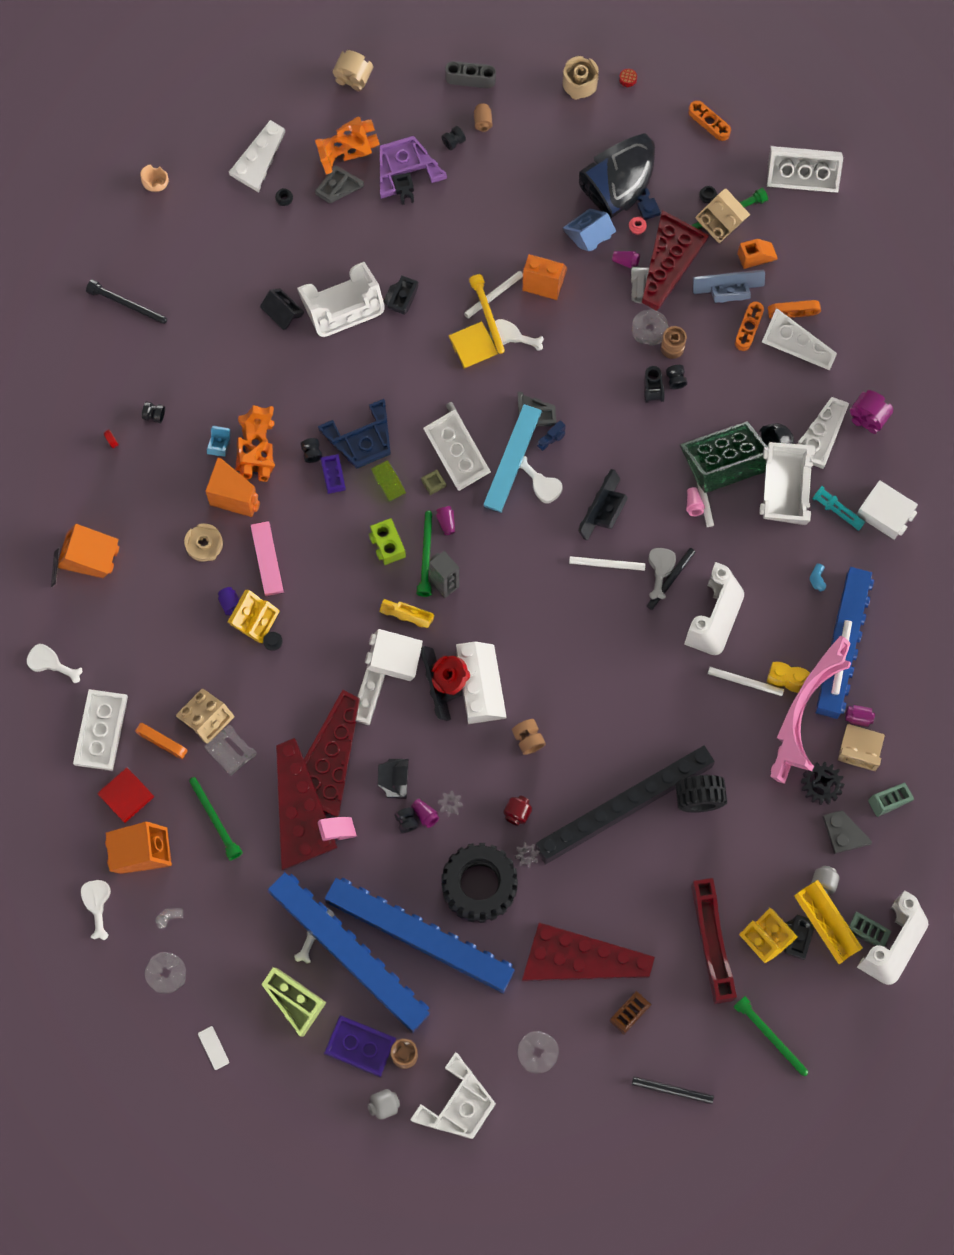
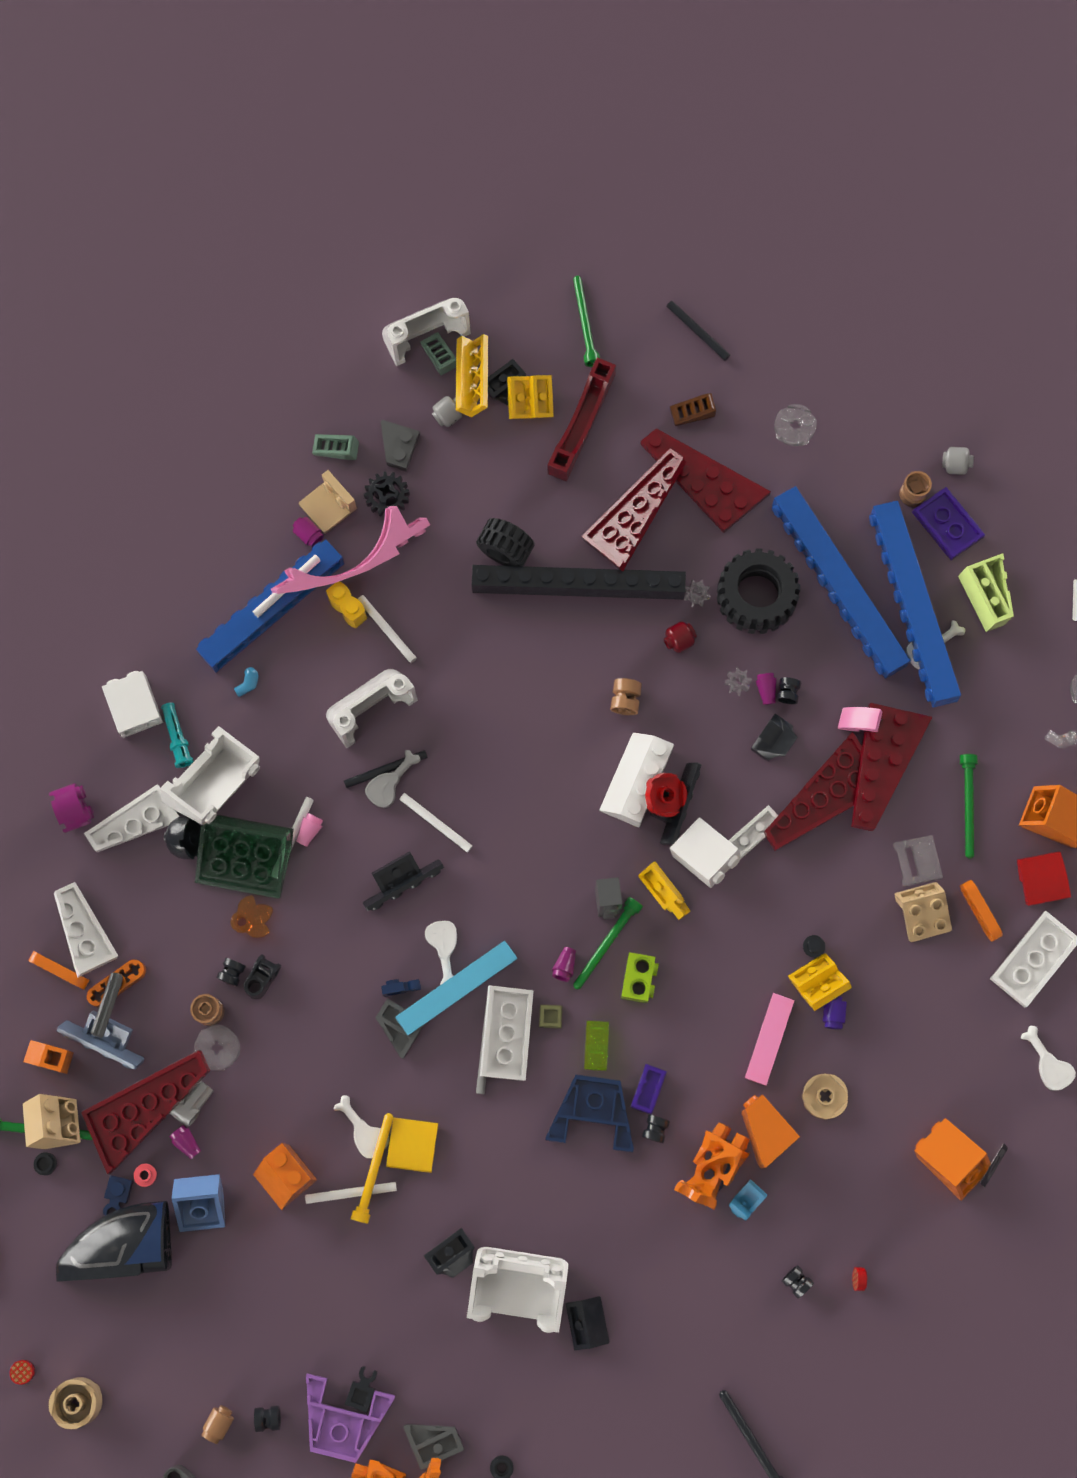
camera: 145 degrees left, 5 degrees up
(465, 1109) = (889, 416): white wing -> none
(620, 877) = (627, 520): none -> wing
(688, 423) = (255, 917): none -> clear orange plate
(743, 303) = (107, 1005): none -> dark grey axle

